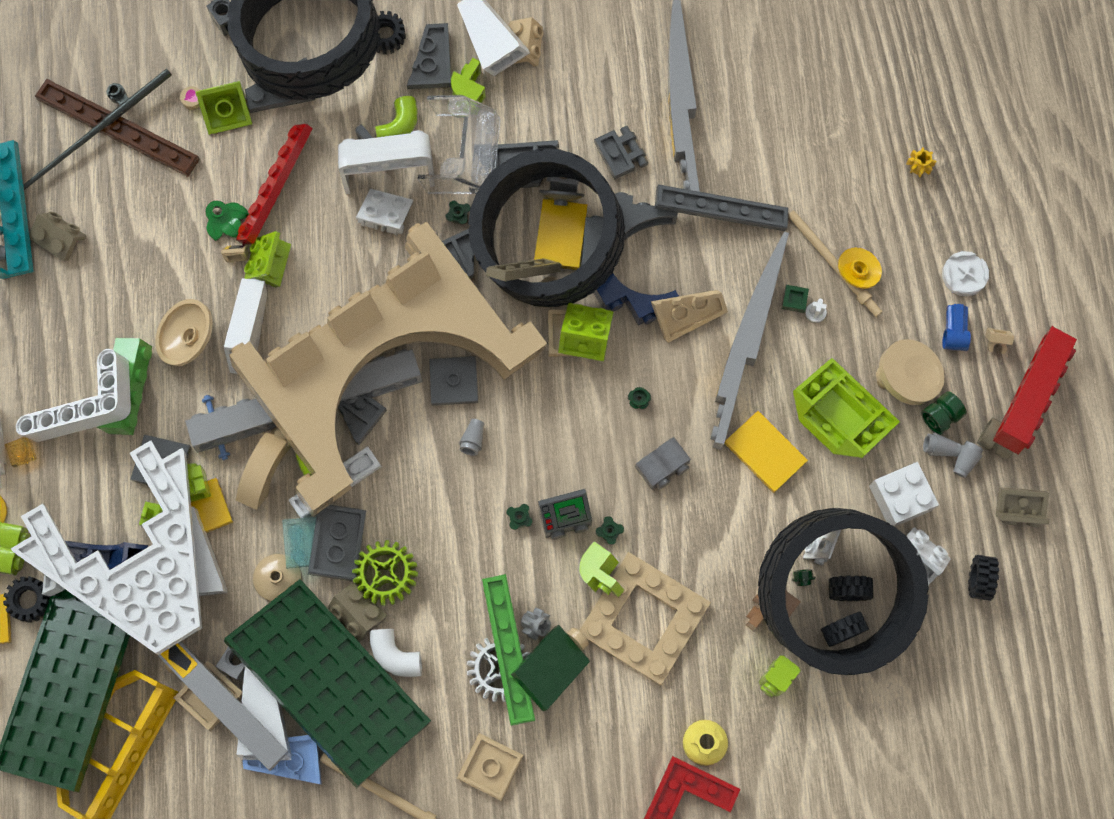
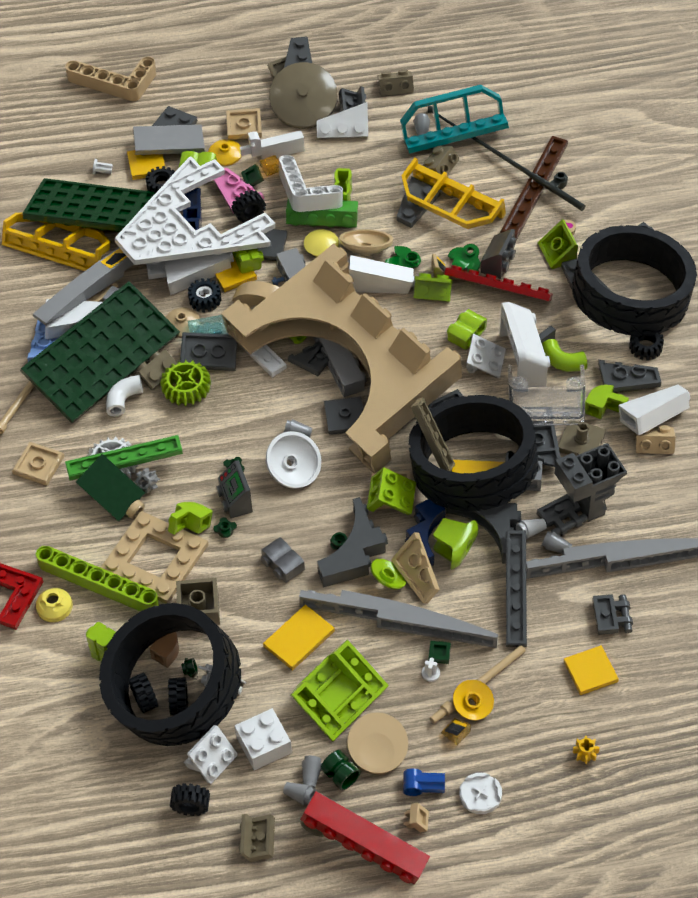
camera: 90 degrees right, 20 degrees down
(40, 475) = (252, 175): none -> dark green plate
(67, 496) = (231, 186): none -> bright pink wing
(80, 356) = (343, 178): none -> lime brick
(100, 479) = (248, 206): none -> black tyre
(115, 268) = (409, 212): none -> dark grey wing
(120, 209) = (452, 188): none -> yellow plate
(170, 393) = (319, 241): none -> light yellow dish
(215, 297) = (404, 257): none -> green plate
(229, 175) = (499, 254): none -> dark grey slope
(249, 536) = (210, 300): none -> black bush
(340, 227) = (466, 325): none -> lime brick
(518, 118) = (581, 438): none -> dark tan tile
(525, 441) = (302, 454): none -> white dish
(602, 101) = (590, 478): none -> dark grey brick
(636, 186) = (532, 526): none -> white cone
(654, 267) = (455, 540): none -> lime piece
(658, 163) = (555, 543): none -> light grey cone
(667, 384) = (353, 557): none -> dark grey arch
(687, 678) = (90, 573): none -> lime beam
(692, 345) = (387, 574): none -> lime dish
(723, 562) = (201, 595): none -> dark tan brick
(754, 122) = (606, 617): none -> dark grey plate
(820, 147) = (591, 670): none -> yellow tile
(892, 290) = (456, 730): none -> slope

